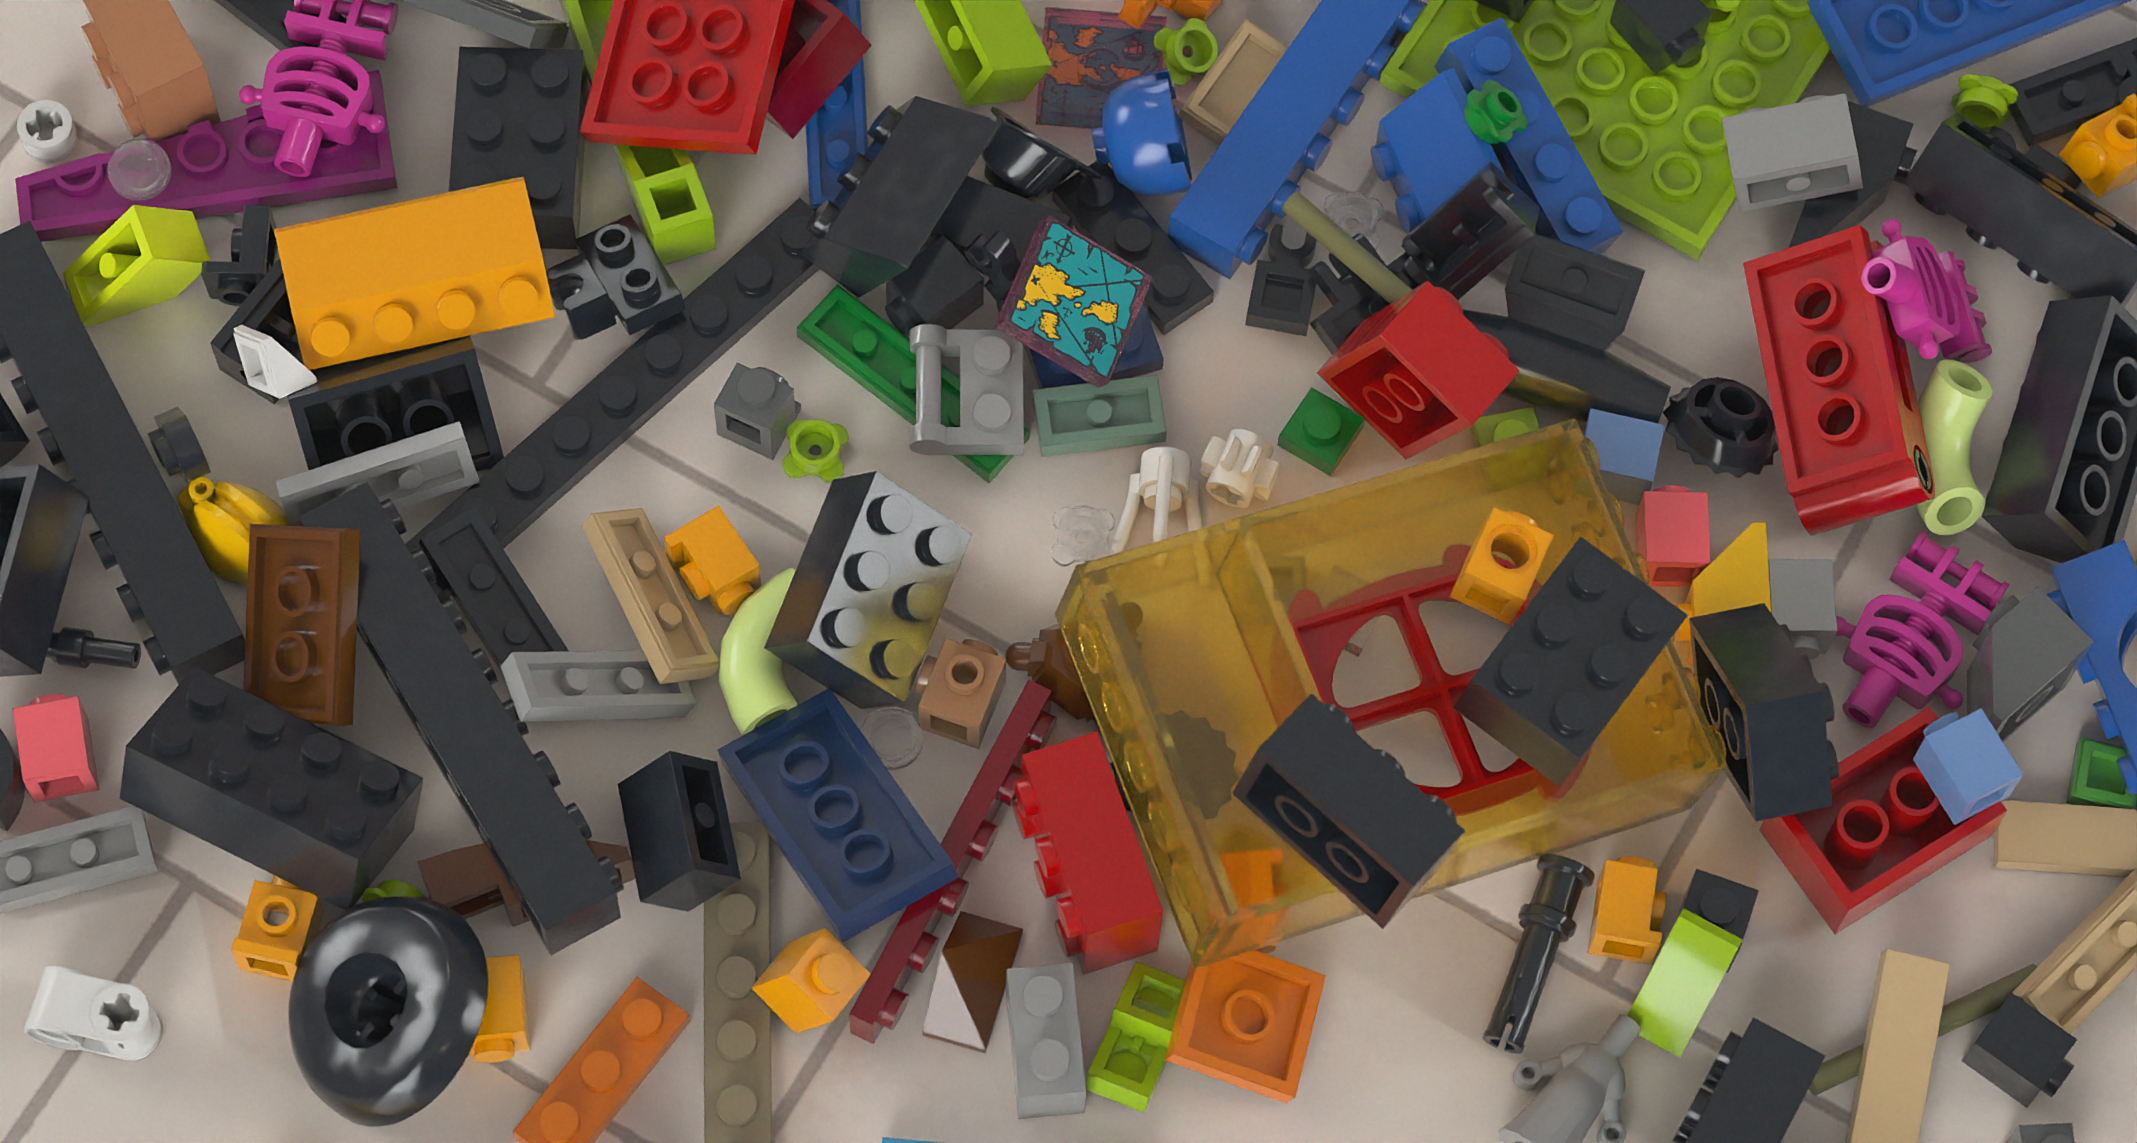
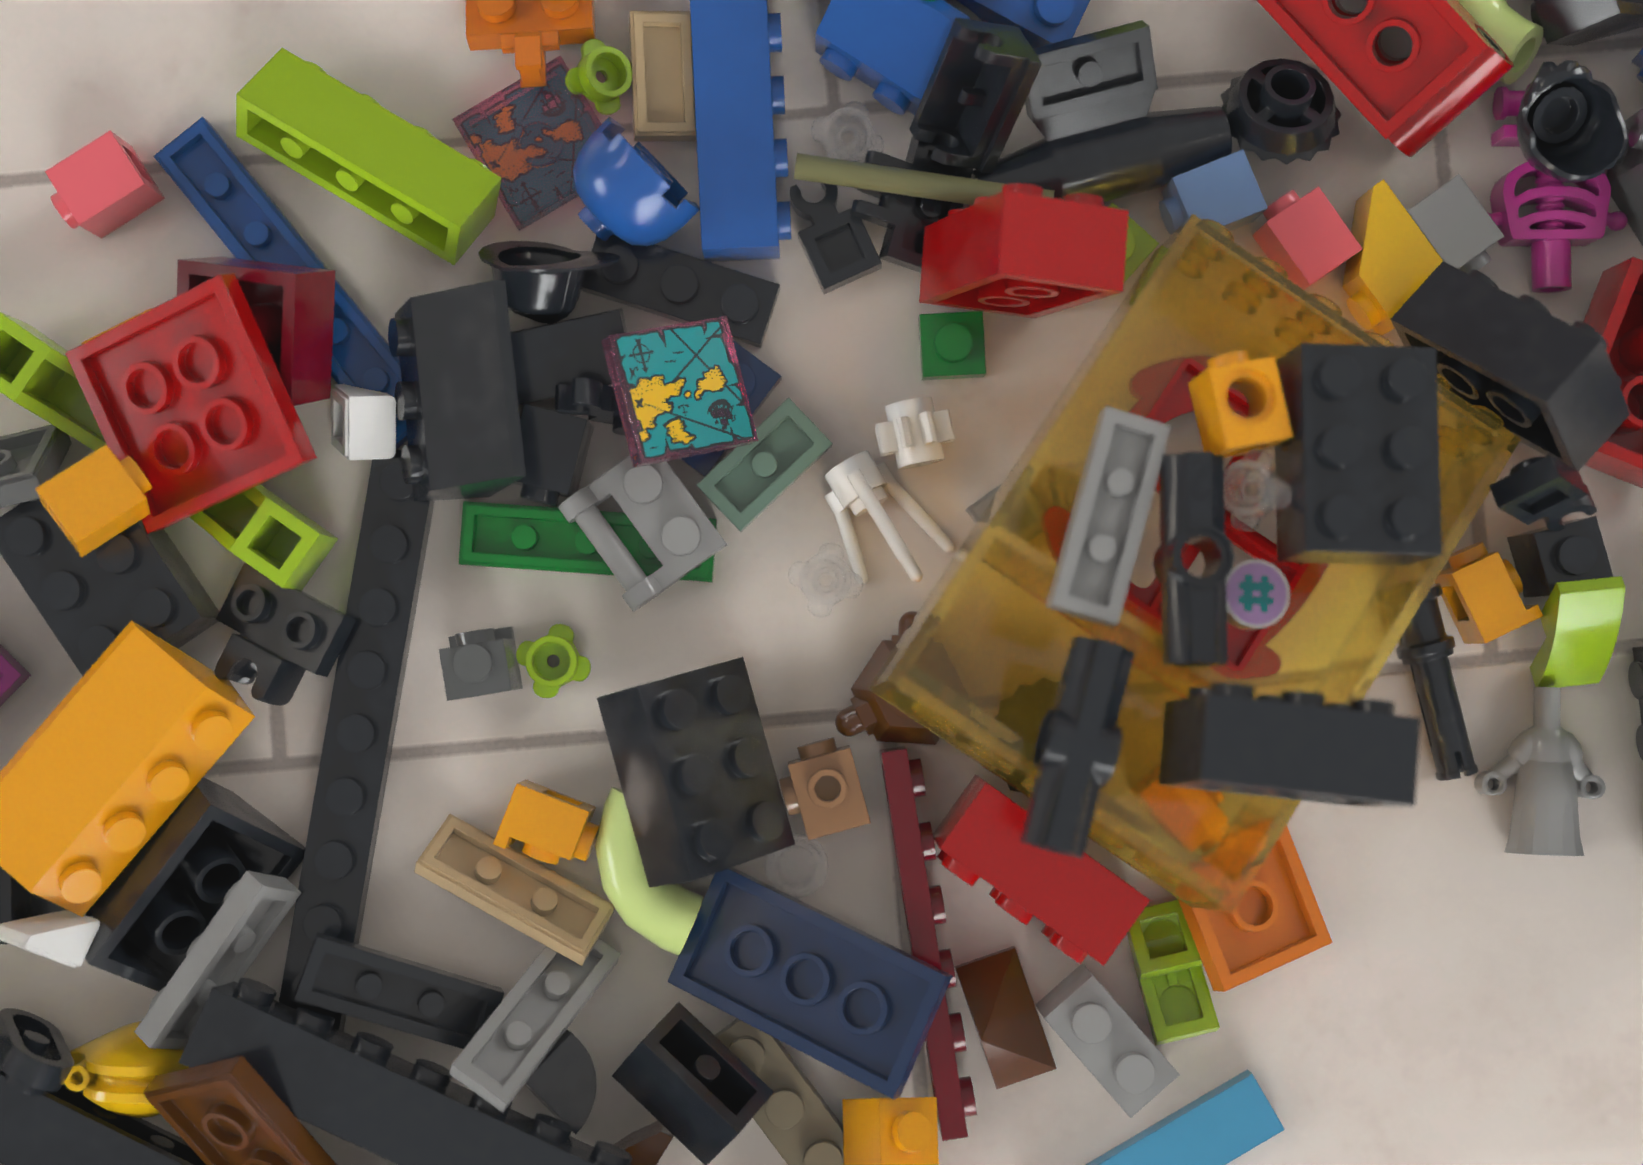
camera: 40 degrees left, 20 degrees up
(567, 72) = (96, 499): none -> light orange brick
(578, 752) = (566, 1081): none -> black brick
(806, 170) = (363, 423): none -> white slope
(1186, 705) = (1077, 746): none -> black piece
(1337, 568) = (1108, 517): none -> light grey plate
(1400, 614) = (1194, 515): none -> black piece
(1412, 709) = (1256, 595): none -> tile
(1467, 629) = (1271, 492): none -> clear plate
(1716, 813) = (1543, 490): none -> black plate
(1946, 569) = (1570, 123): none -> black hair

